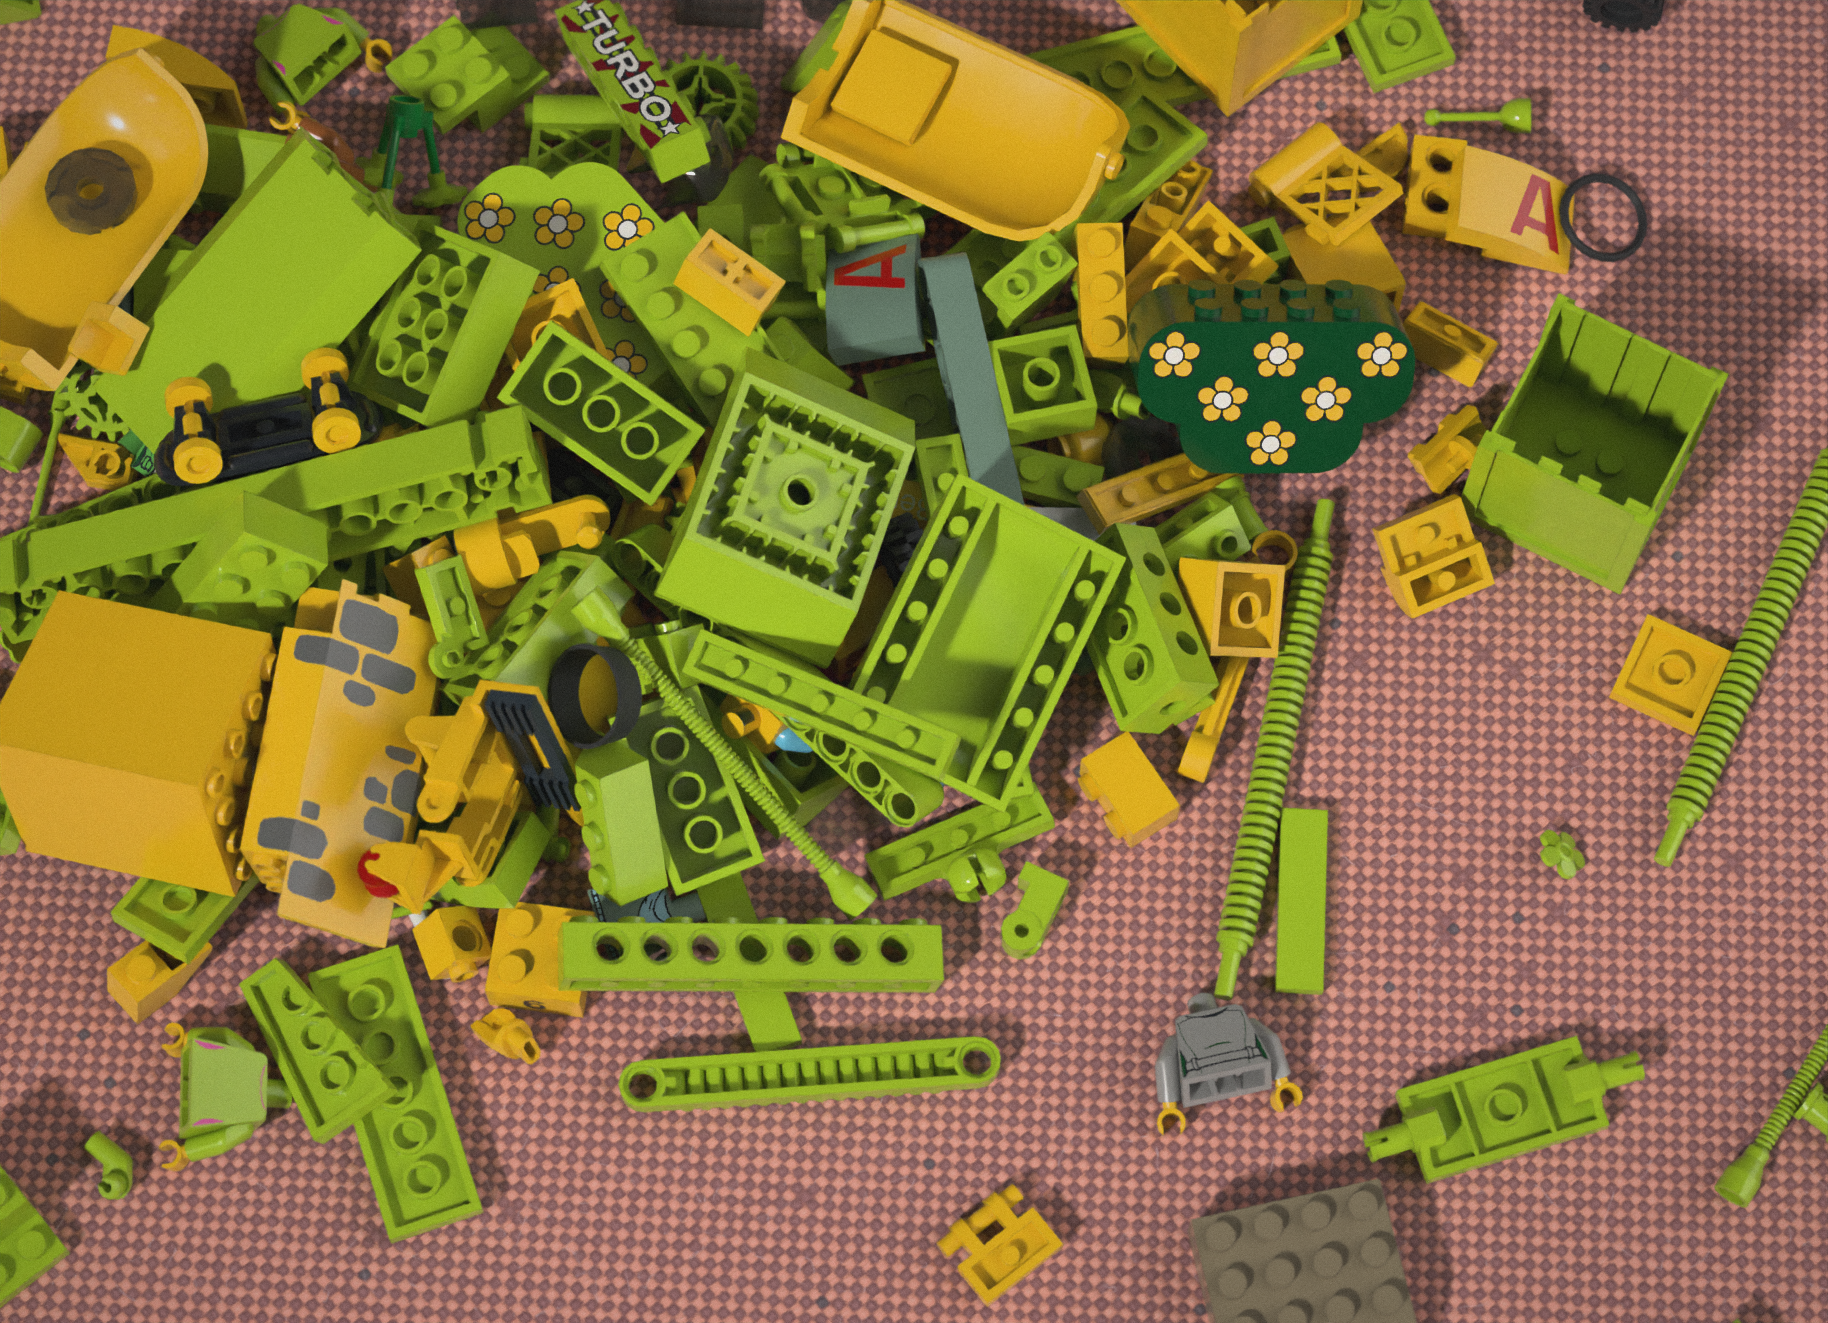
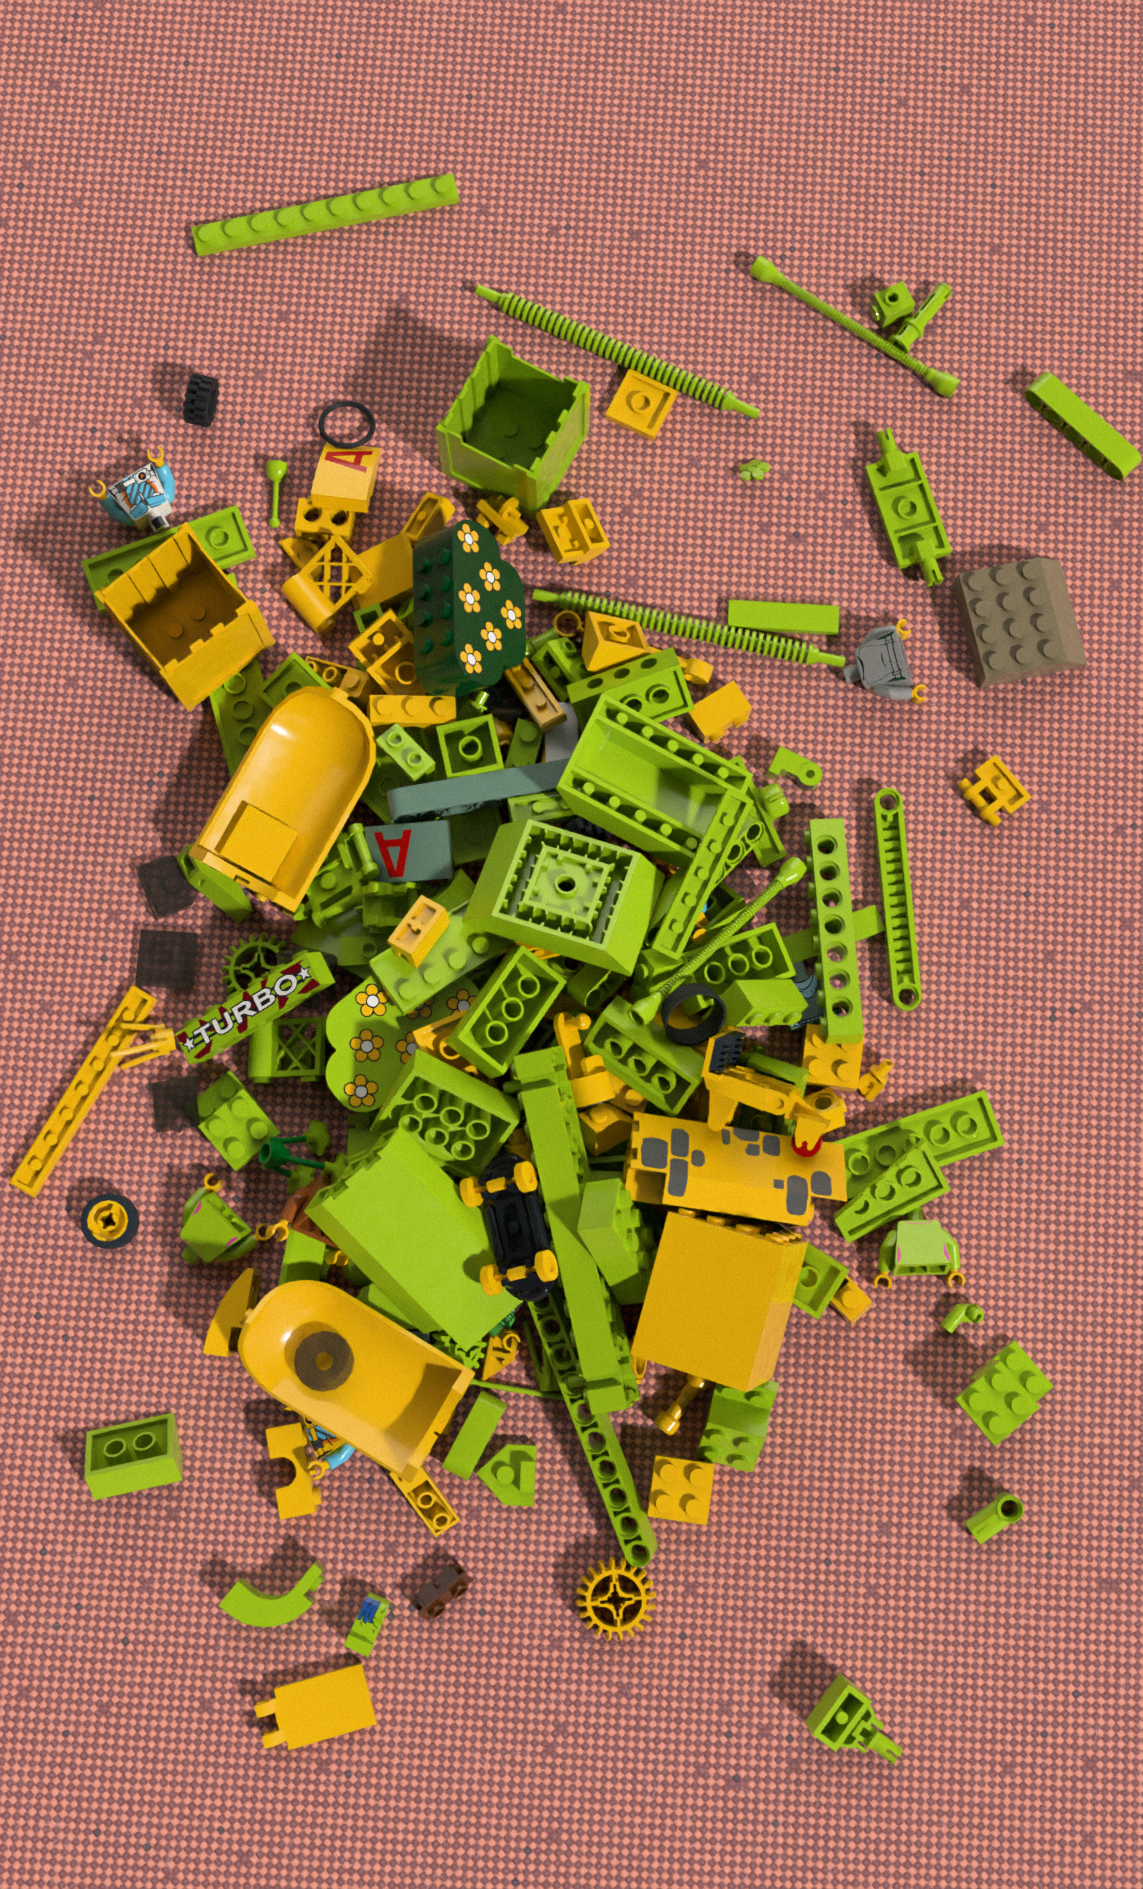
camera: 90 degrees left, 10 degrees up
(108, 338) = (441, 1338): yellow panel -> none
(452, 615) = (635, 1106): lime hinge -> none

